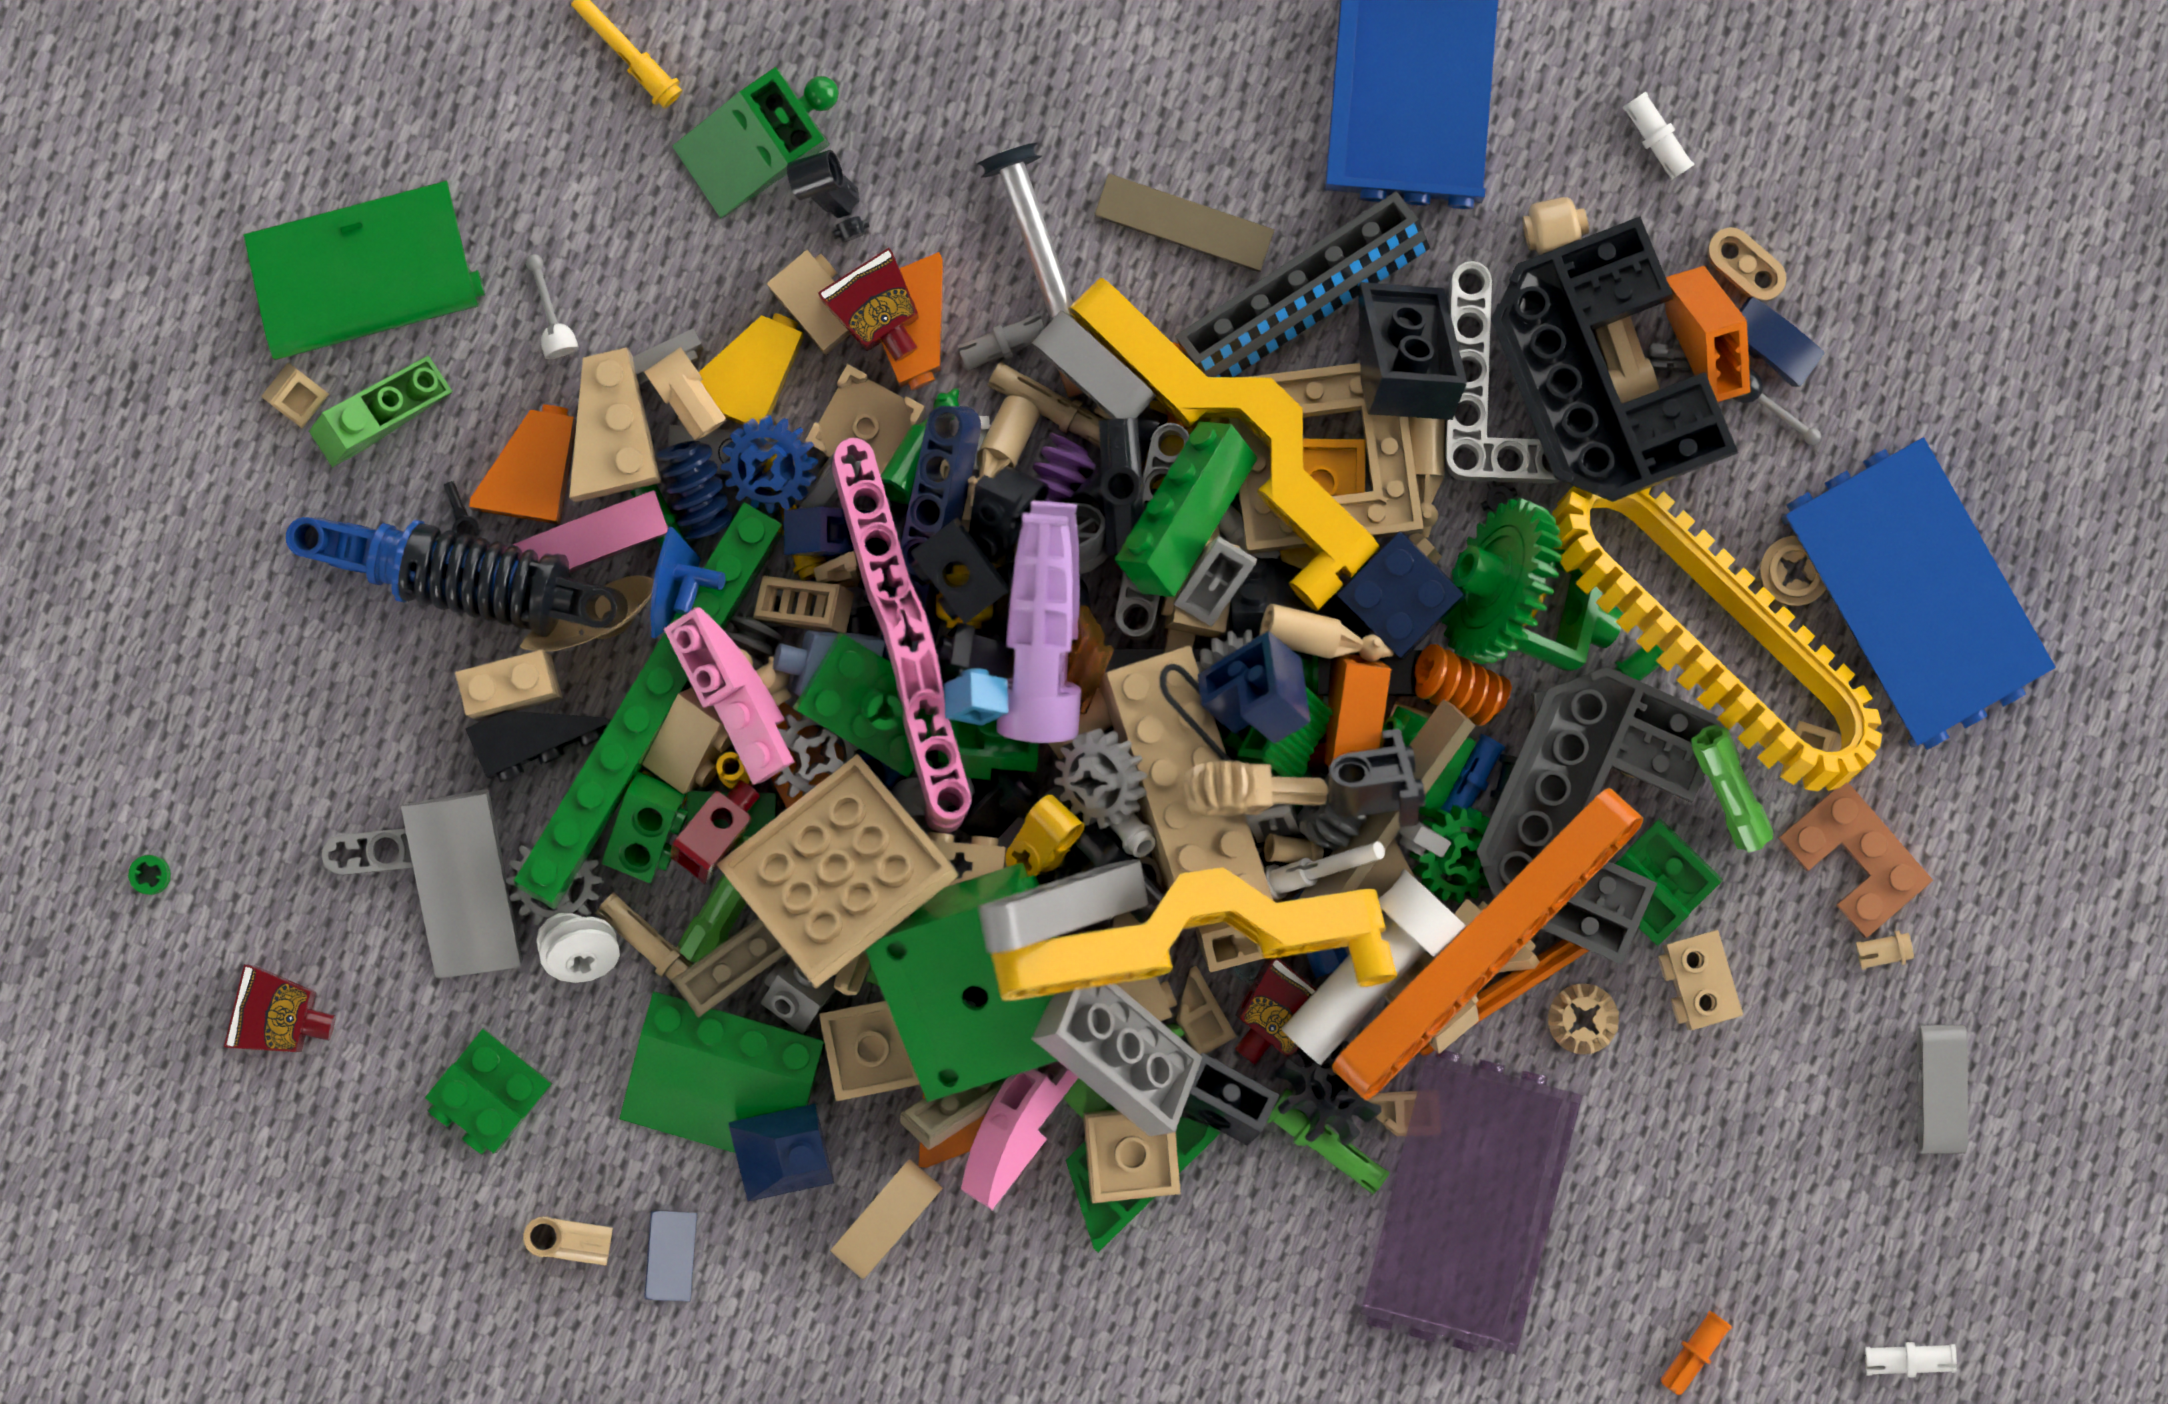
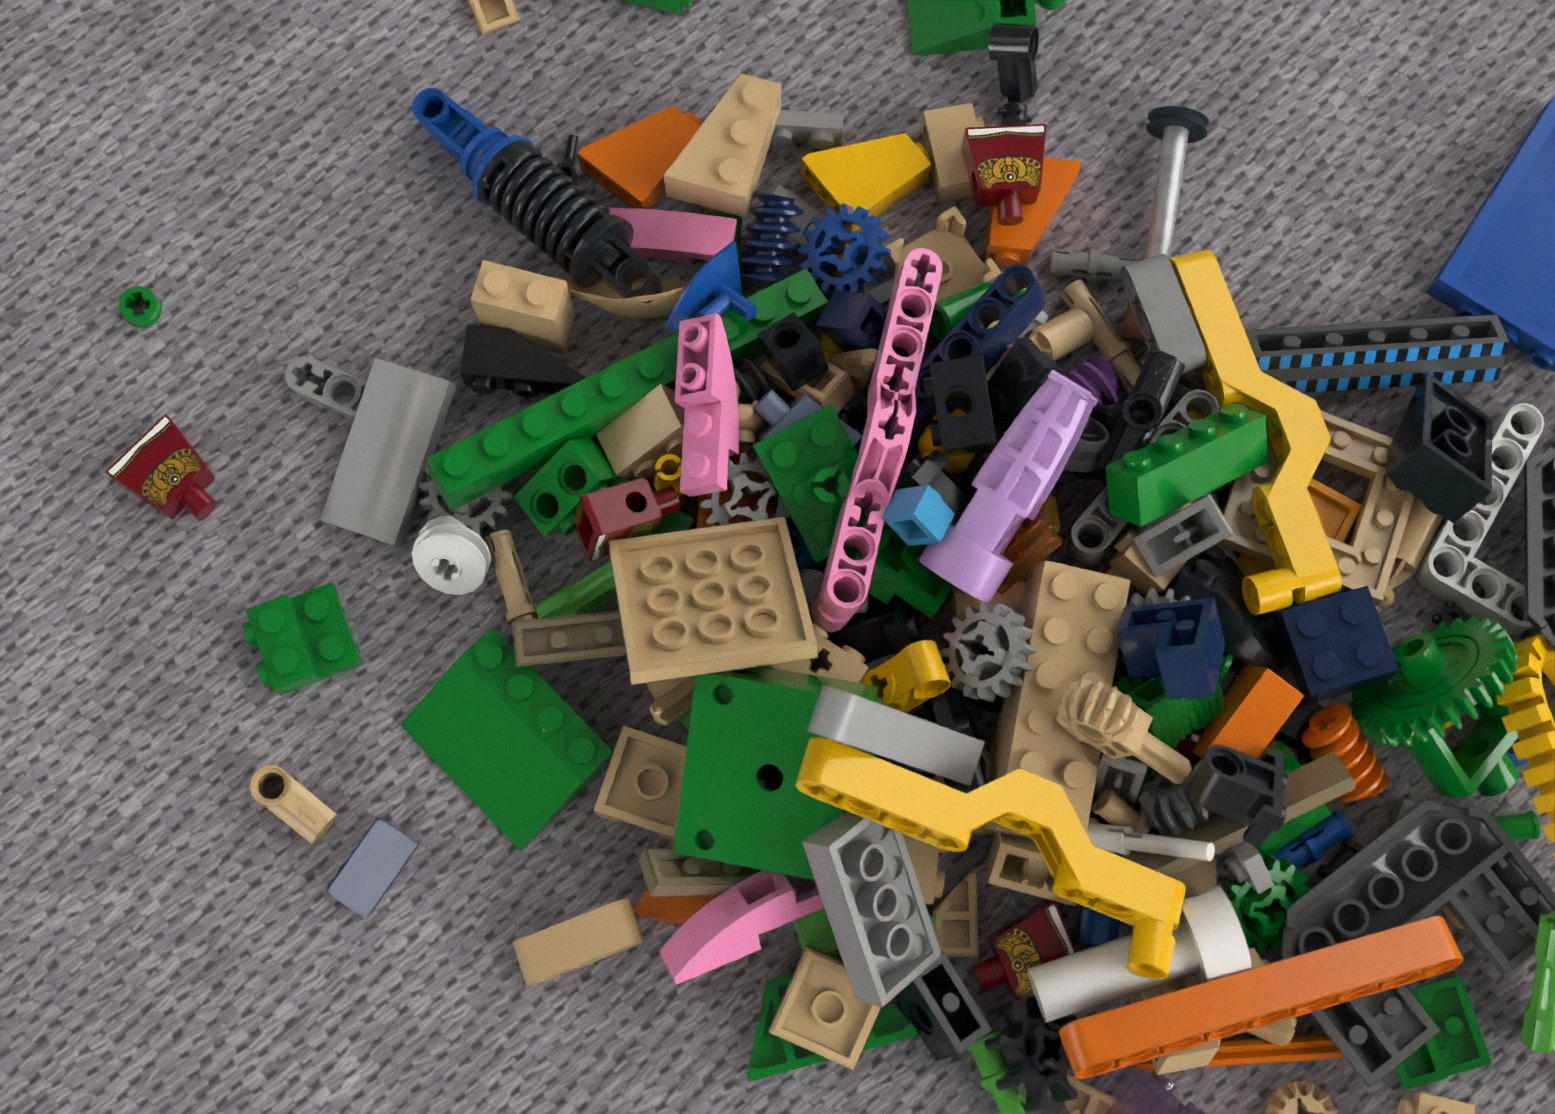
camera: 25 degrees right, 10 degrees down
(378, 410) = (548, 48): bright green slope -> none
(557, 338) = (728, 69): hinge -> none
(680, 386) = (808, 148): tan piece -> none
(781, 1152) = (520, 831): dark blue slope -> none
(792, 599) = (793, 351): none -> black brick
(795, 997) = (615, 701): light grey brick -> none
(1136, 836) = (989, 722): white pin -> none
(1163, 685) = (1096, 629): black piece -> none
(1184, 223) = (1294, 254): dark tan tile -> none
(1320, 635) = (1252, 635): tan wheel -> none

